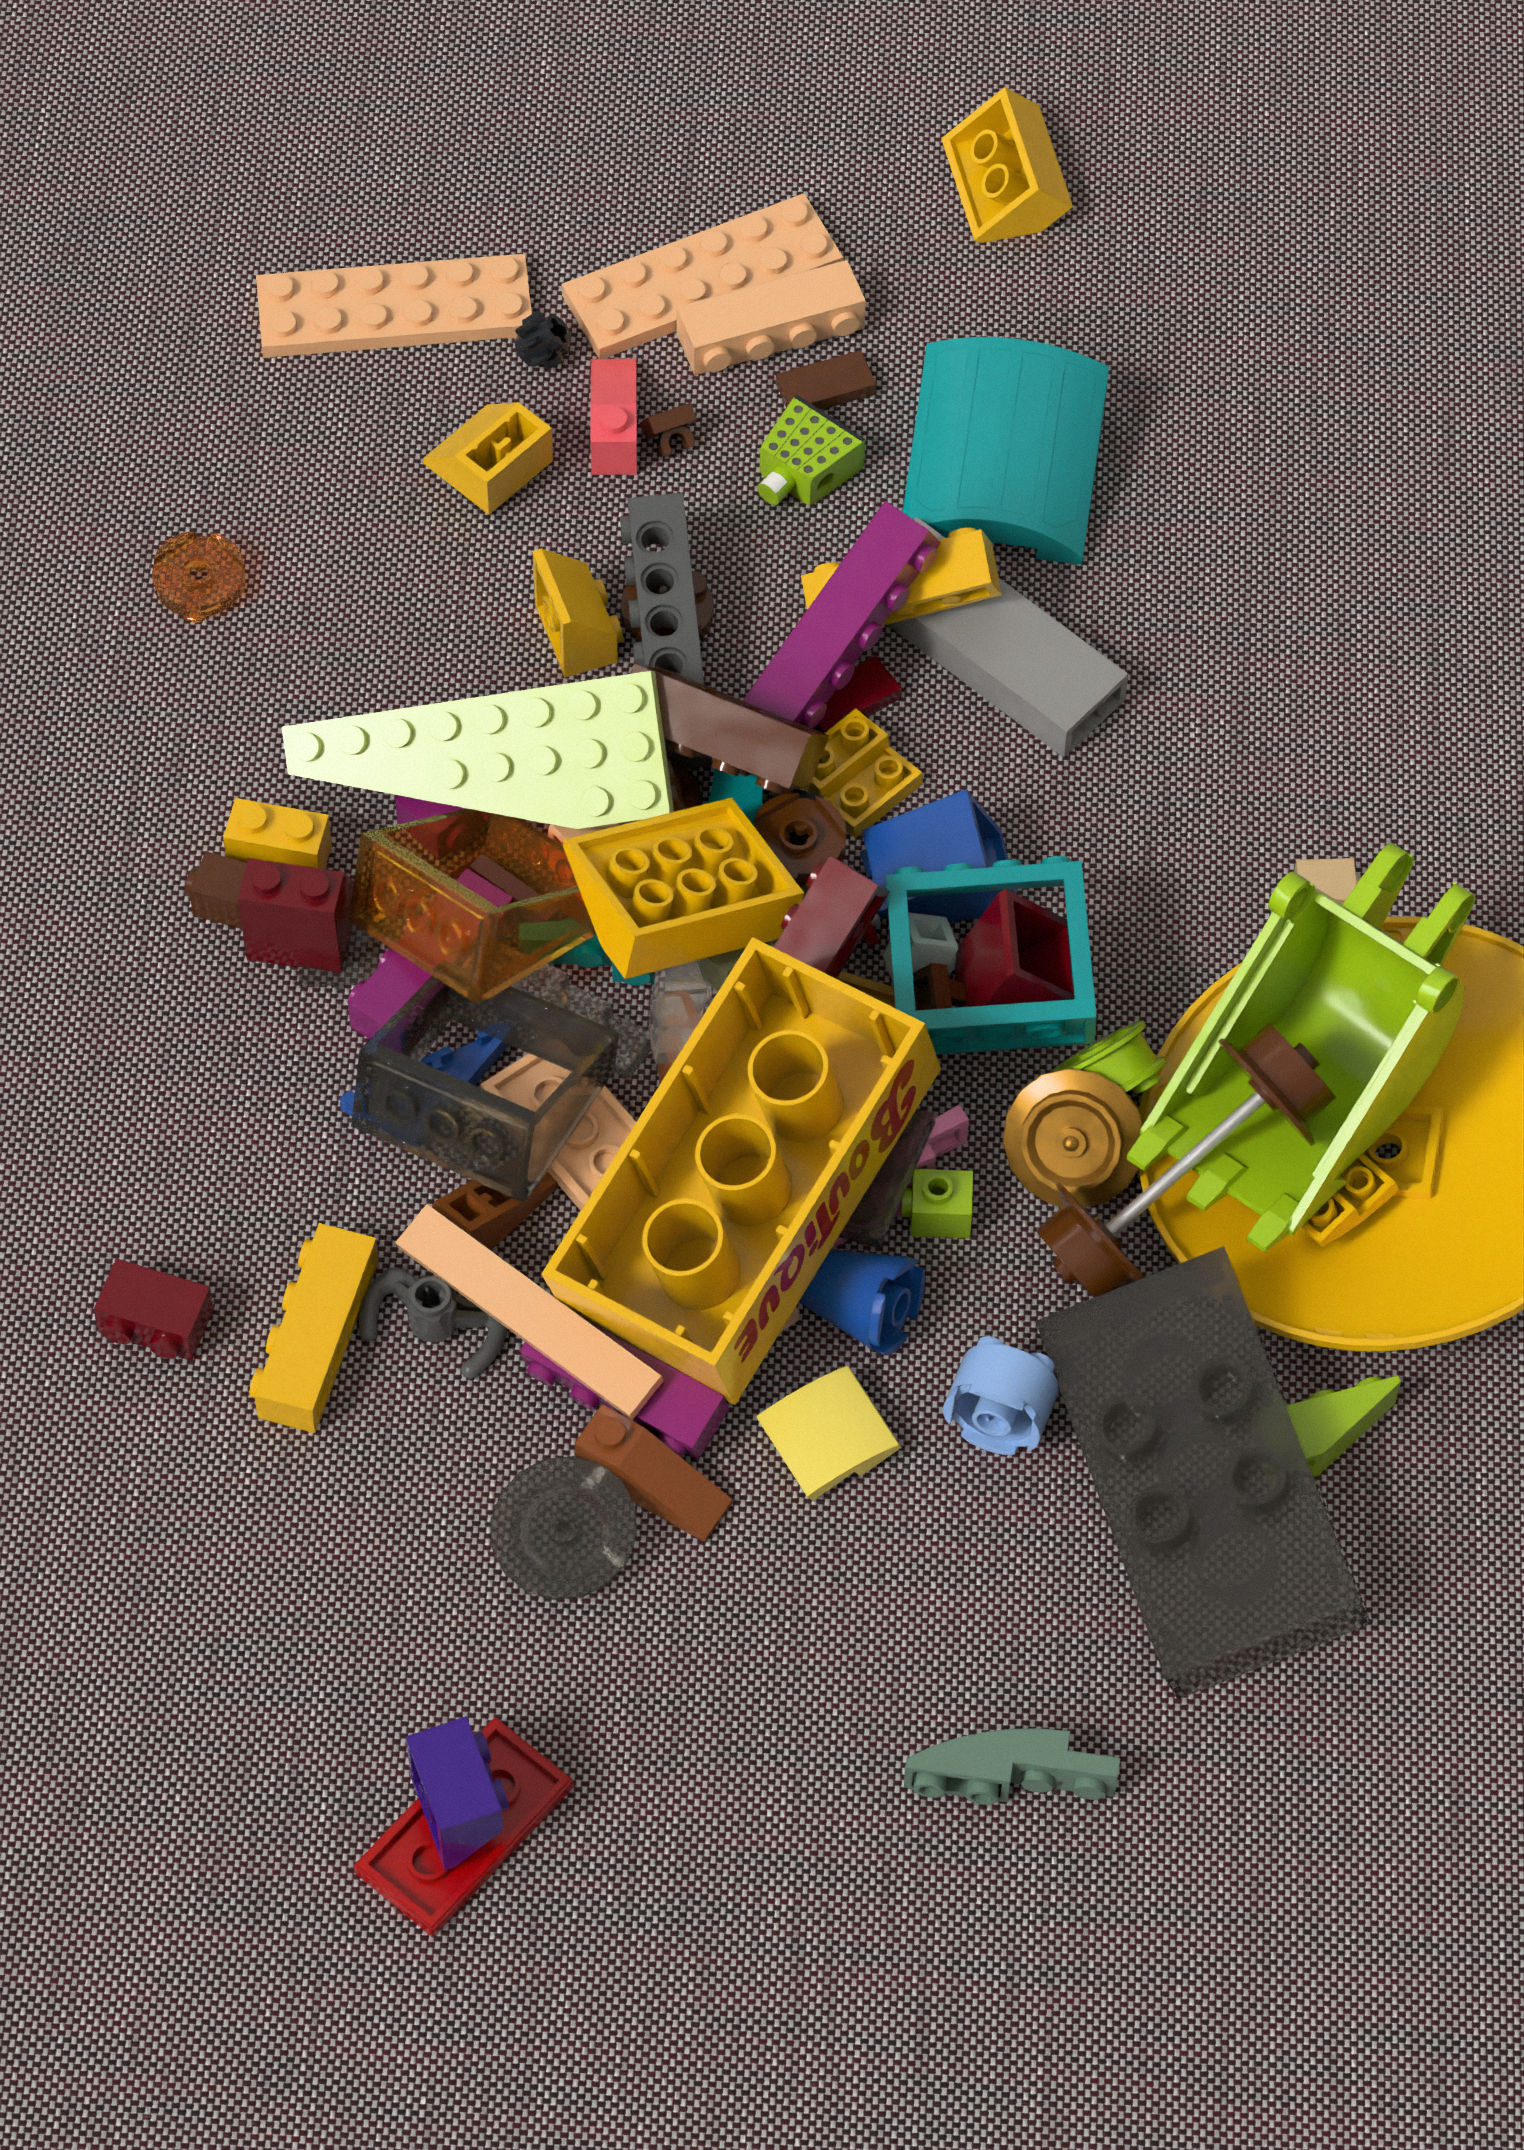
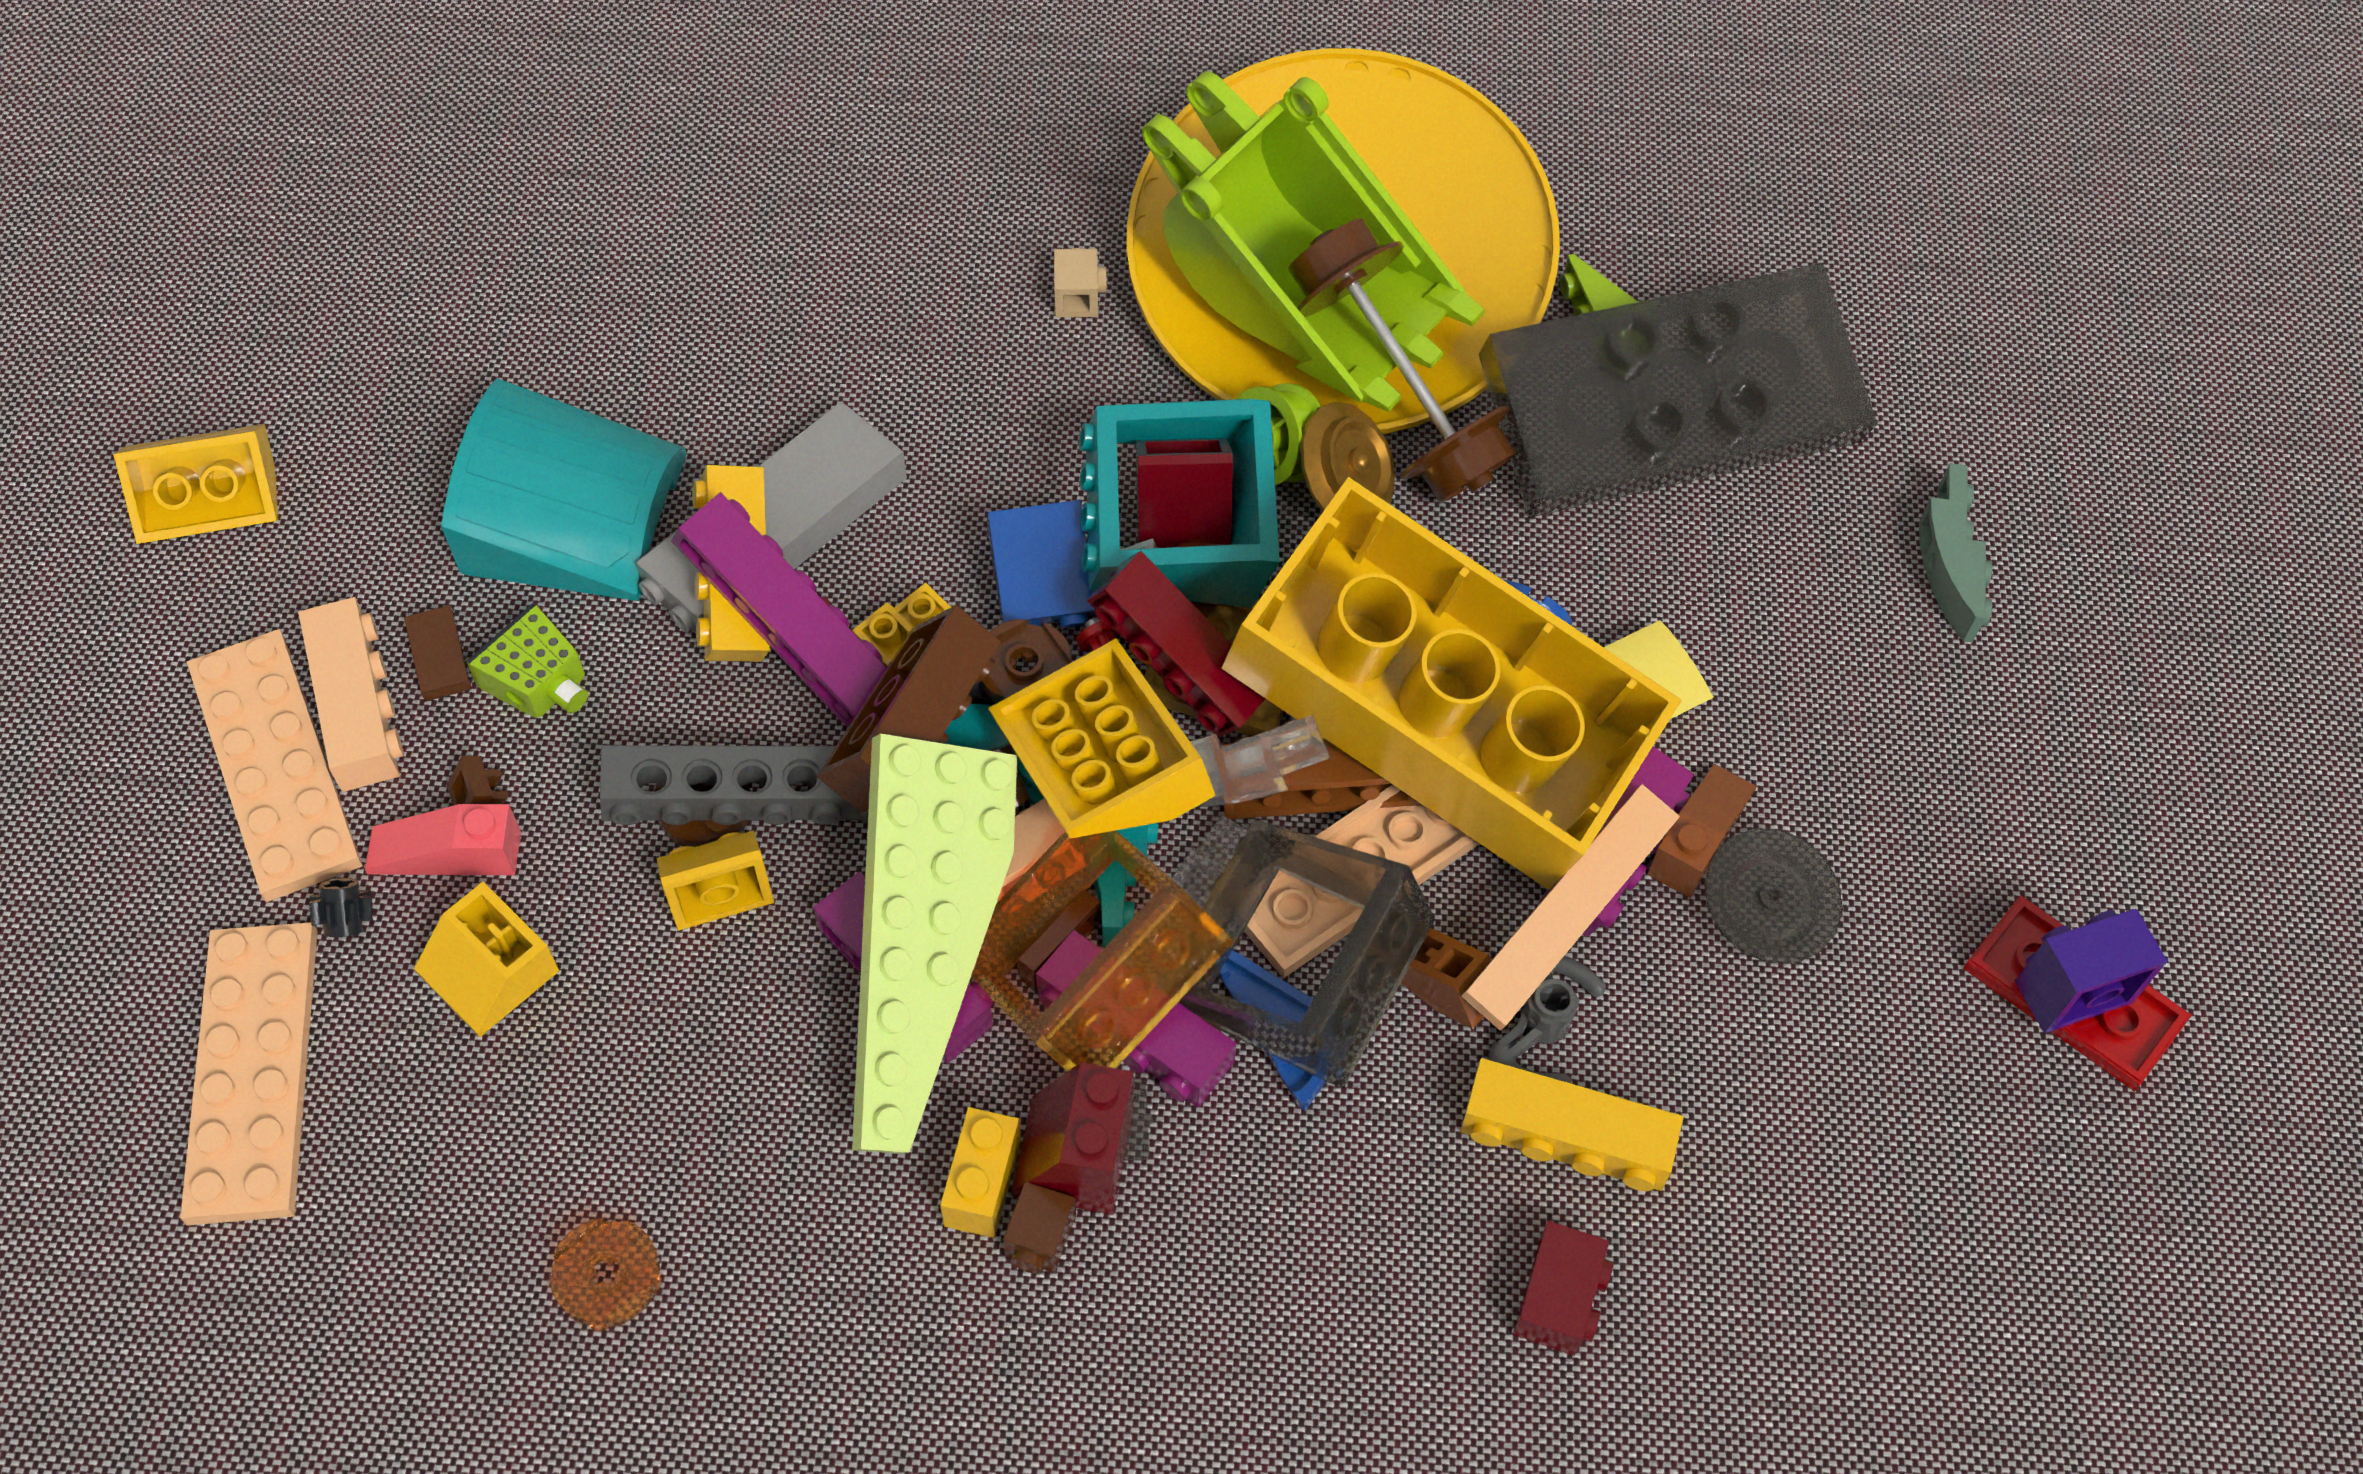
camera: 90 degrees left, 0 degrees up
(1002, 1396) = (1611, 533): light blue brick -> none

